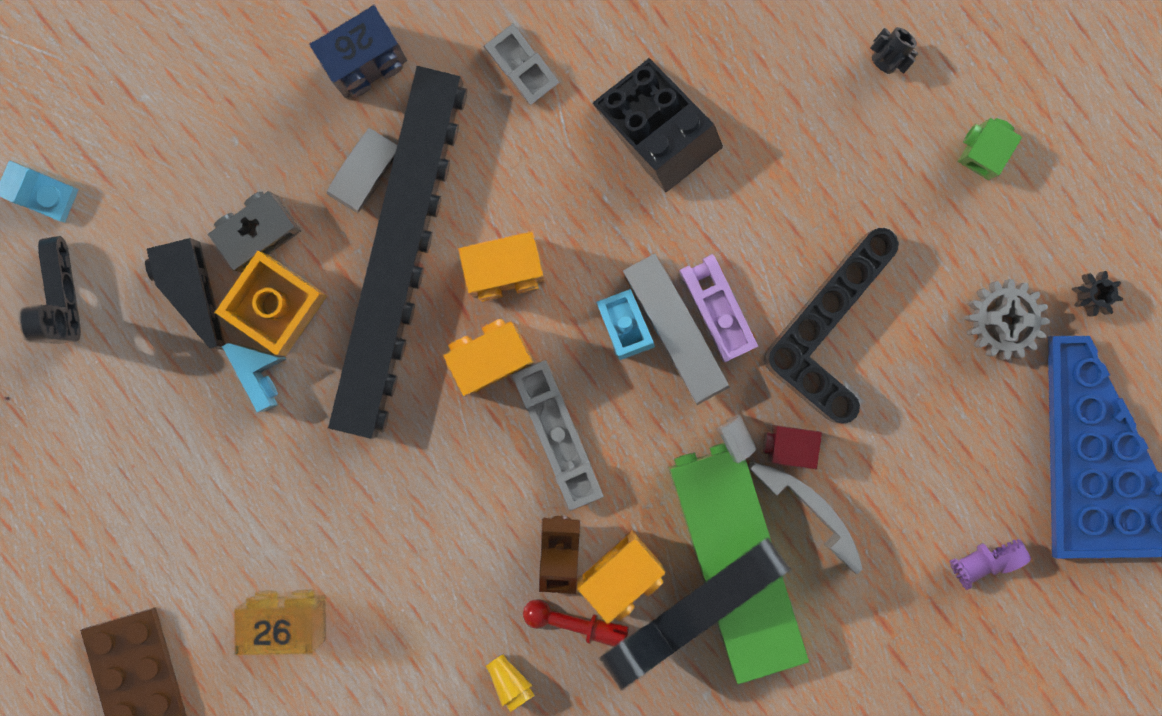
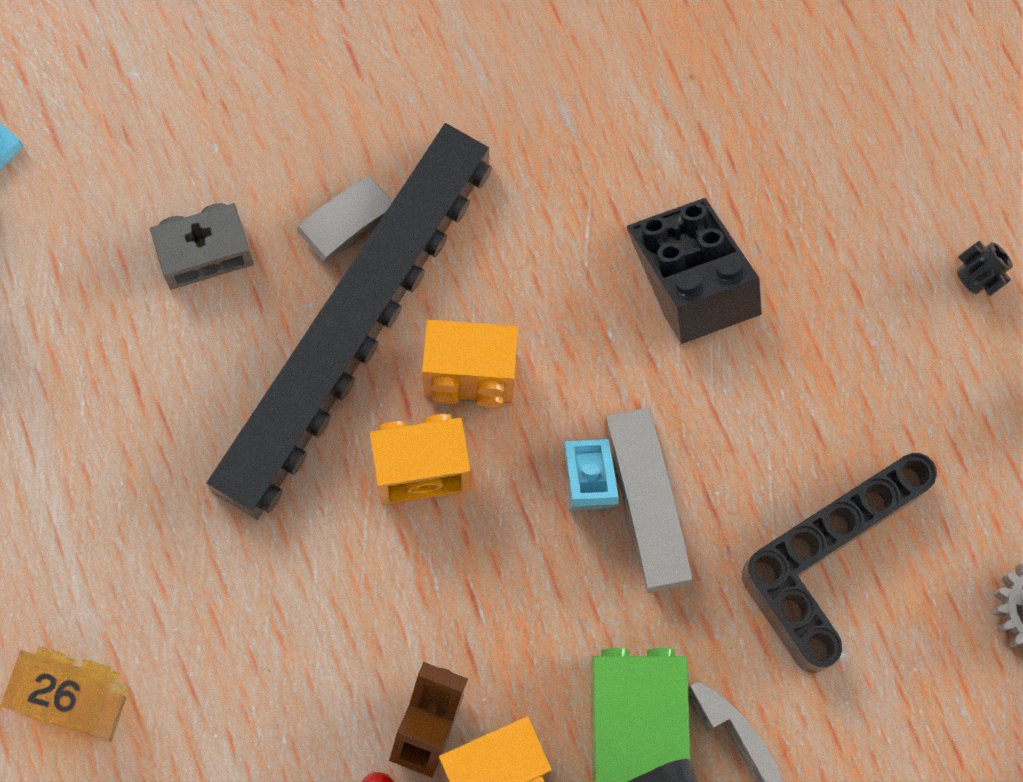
camera: 15 degrees right, 15 degrees down
(184, 280) = (103, 270): black slope -> none
(248, 366) = (142, 389): medium azure slope -> none
(271, 304) = (192, 326): light orange brick -> none
(359, 53) = (387, 90): dark blue brick -> none
(521, 64) = (559, 160): light grey slope -> none
(558, 435) = (471, 578): light grey slope -> none
(719, 309) = (705, 494): lavender plate -> none
(737, 438) = (683, 643): light grey slope -> none
(792, 446) = (748, 677): dark red brick -> none

